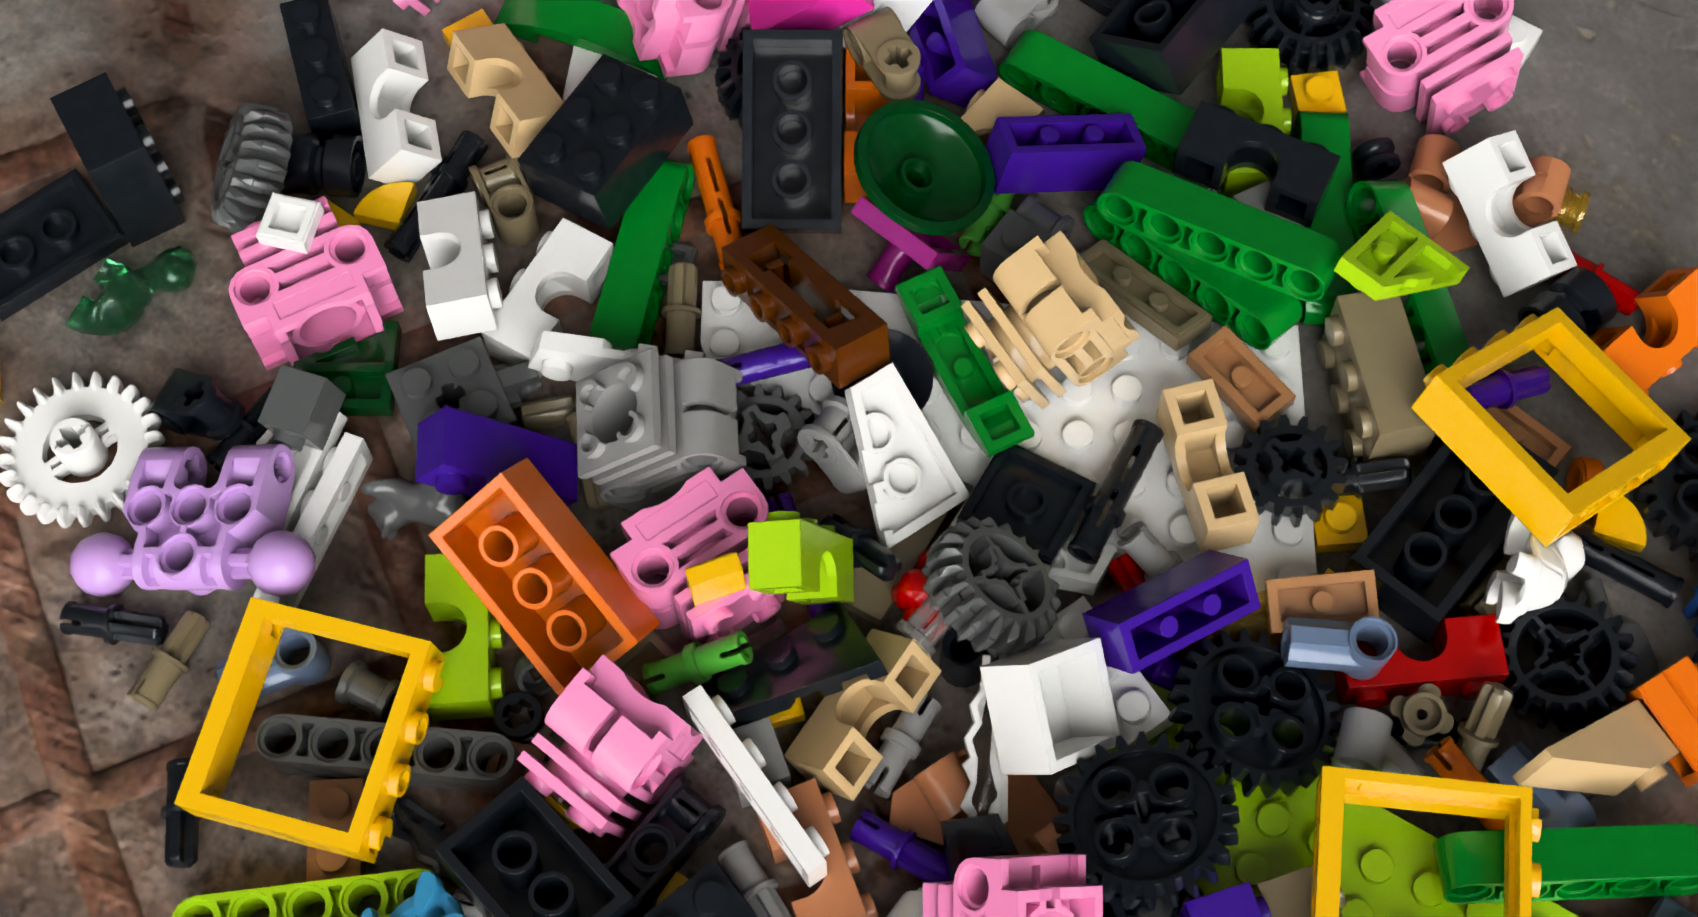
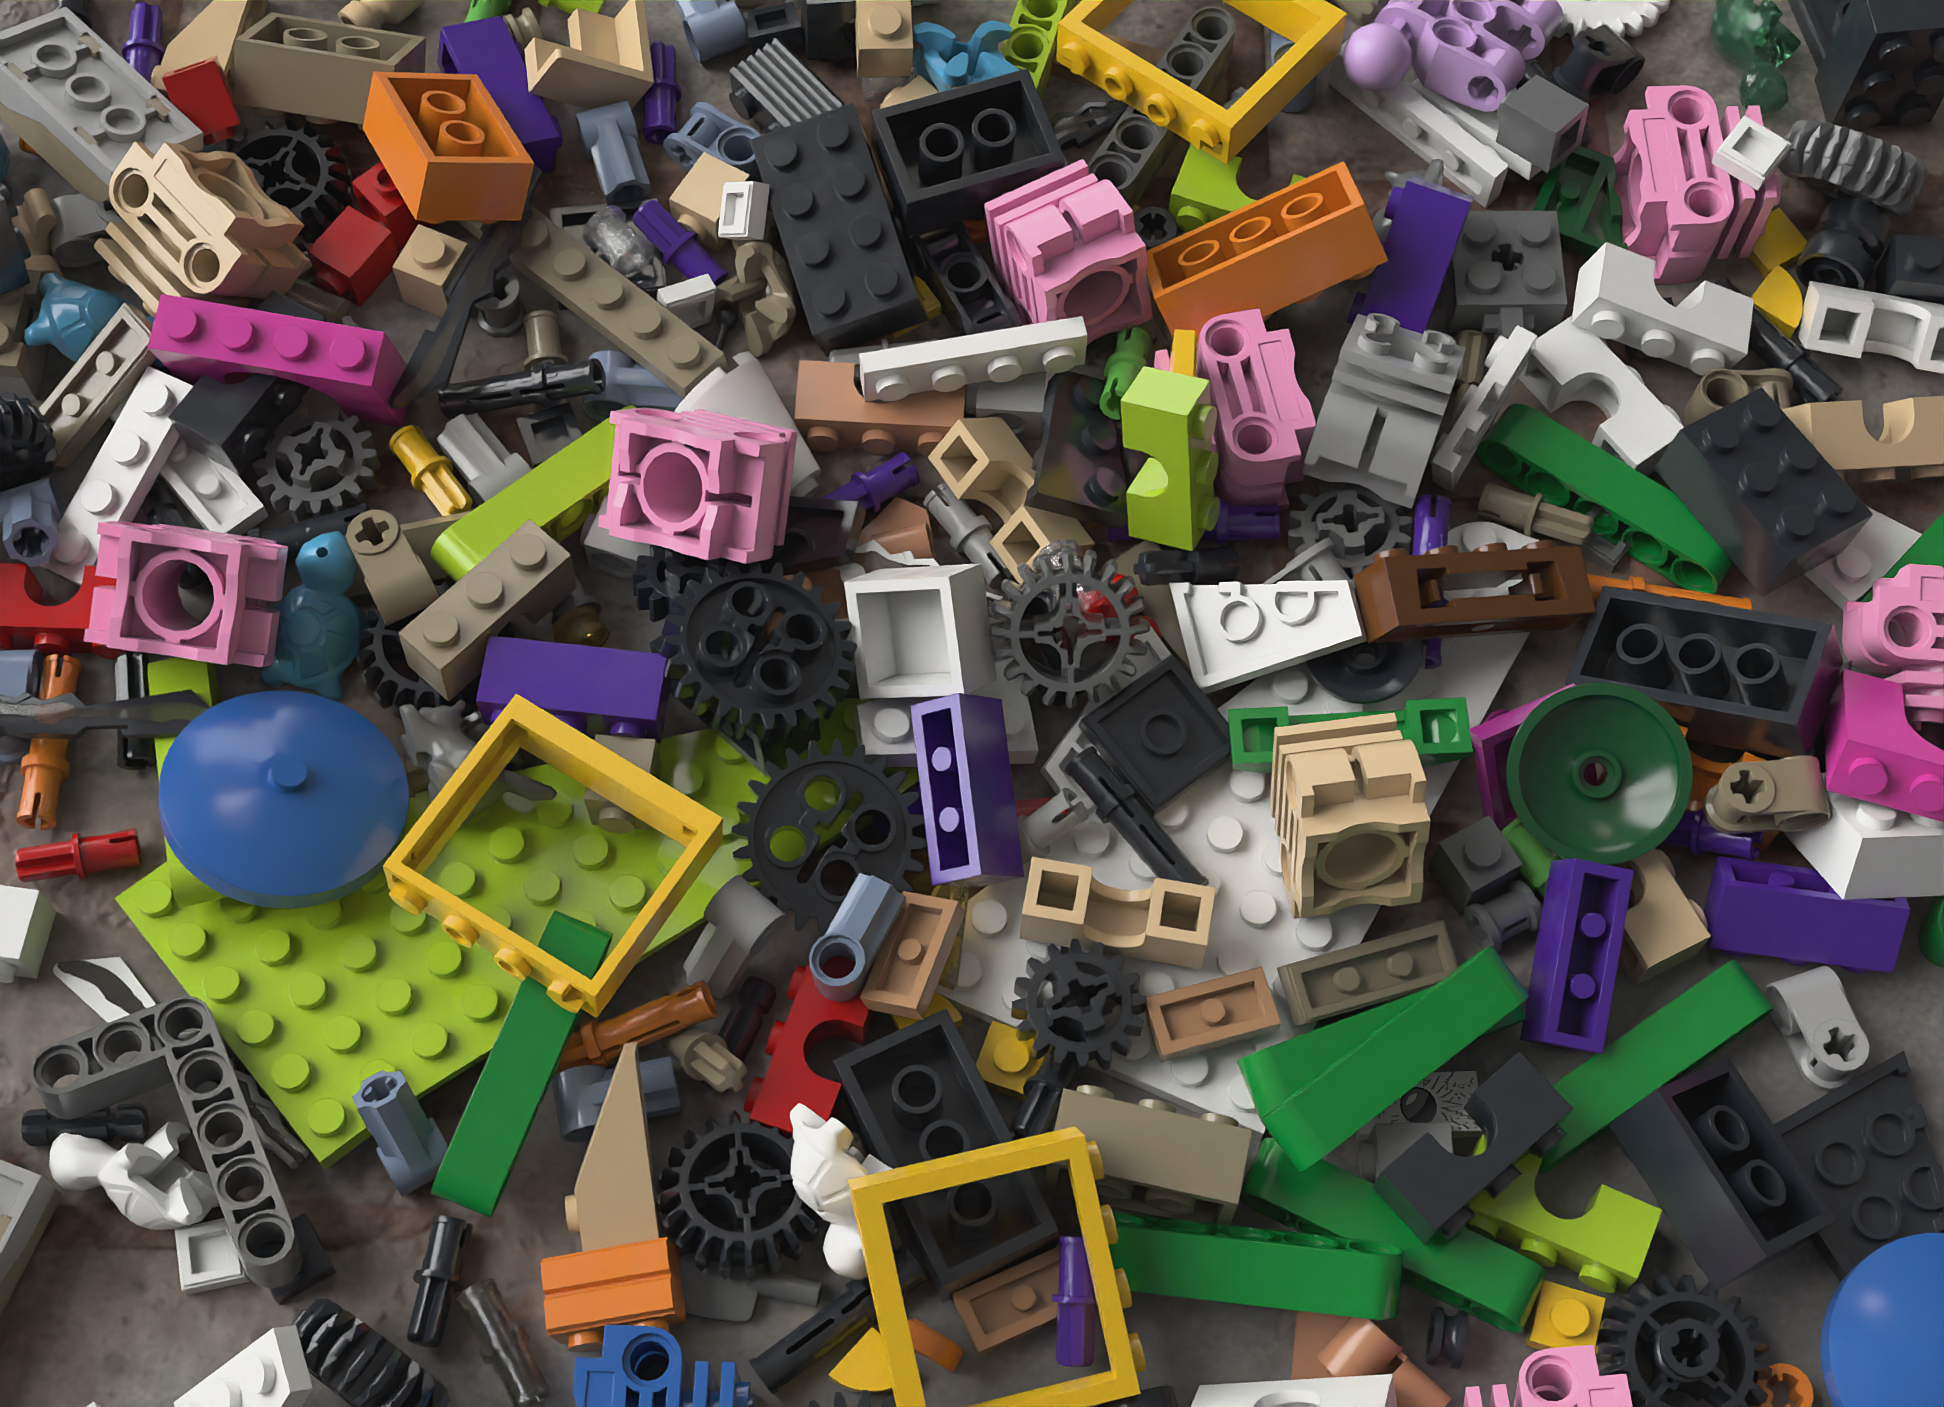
camera: 110 degrees right, 0 degrees up
(1398, 261) = (1265, 1214): lime wing -> none
(1436, 719) = (741, 999): dark tan plate -> none

